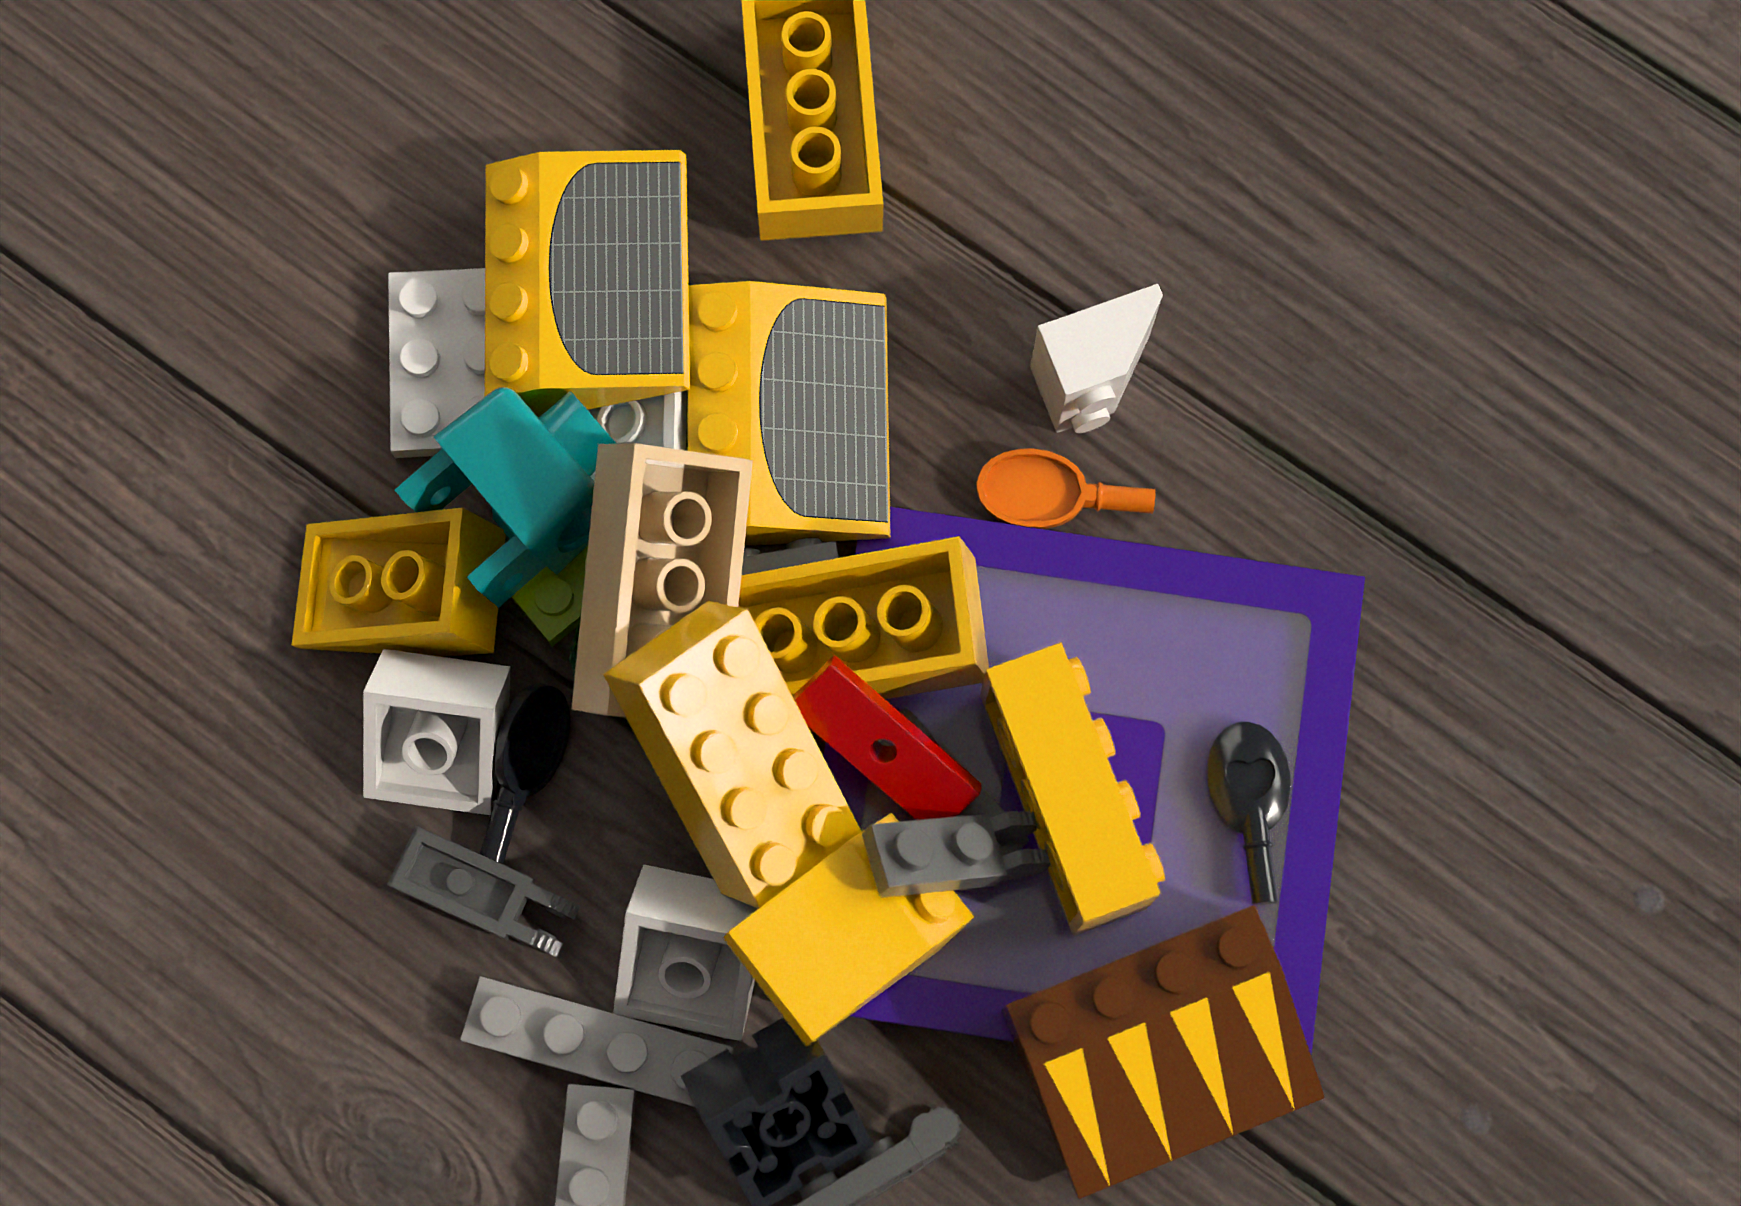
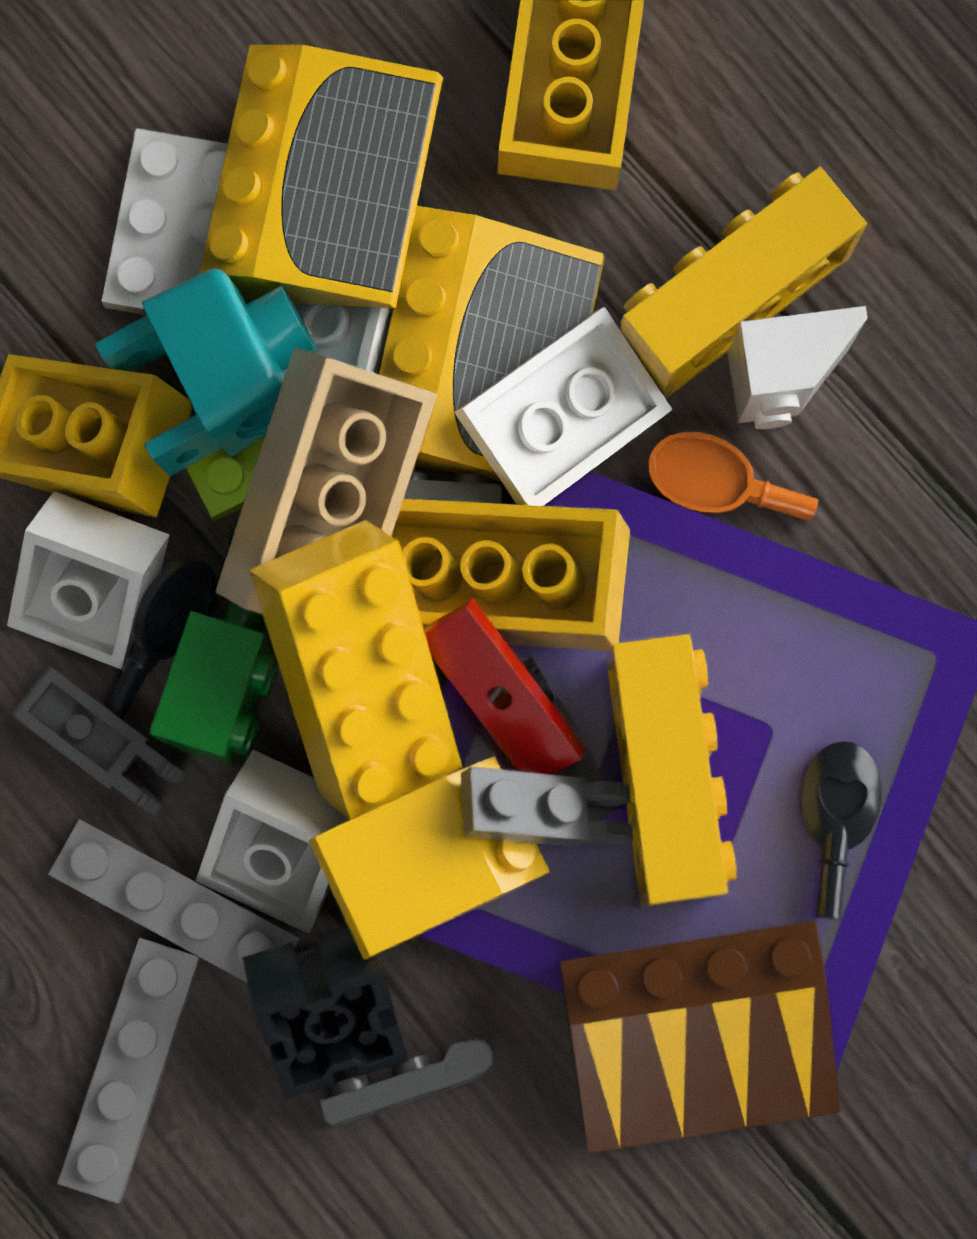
camera: 10 degrees right, 5 degrees up
(592, 806) = (216, 686): none -> green brick
(881, 454) = (564, 410): none -> white plate
(1037, 277) = (743, 278): none -> yellow brick

